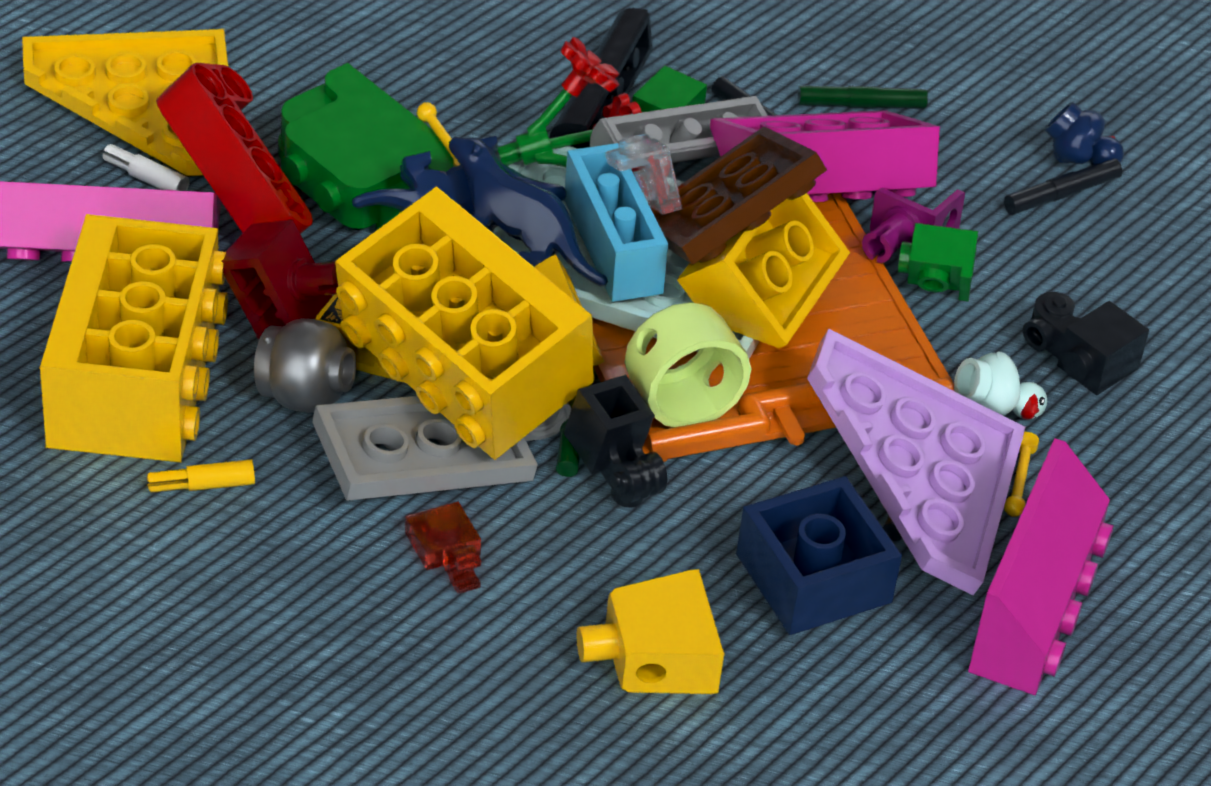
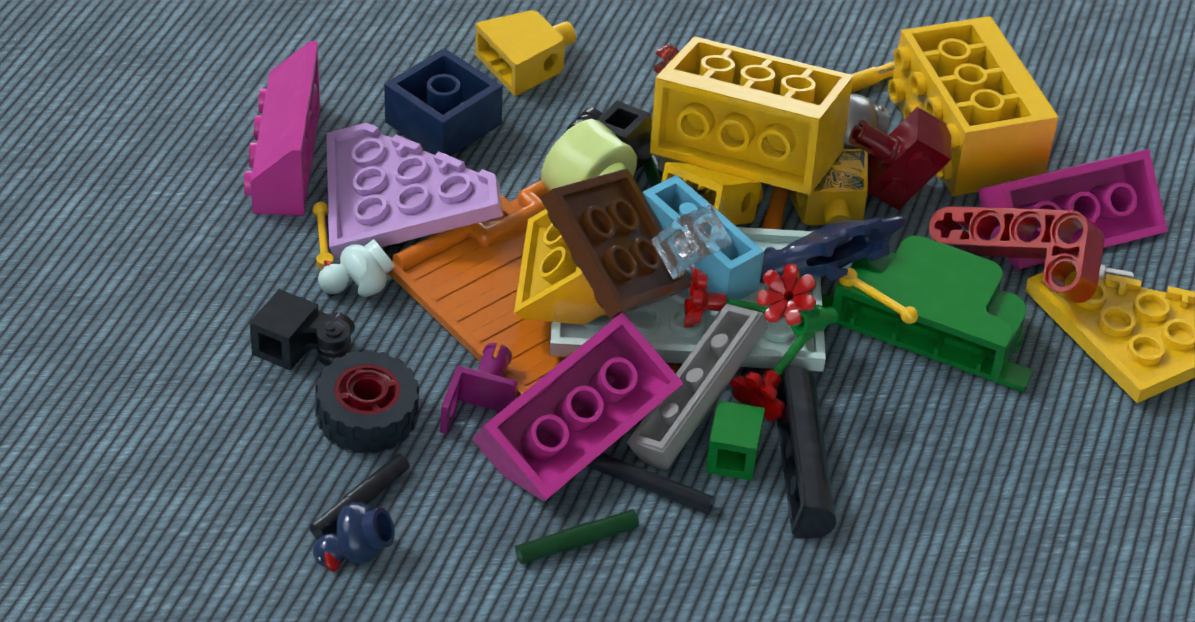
camera: 160 degrees right, 0 degrees up
(520, 209) = (784, 214): dark blue animal -> none
(940, 259) = (437, 371): green brick -> none
(1032, 250) = (367, 401): none -> black wheel

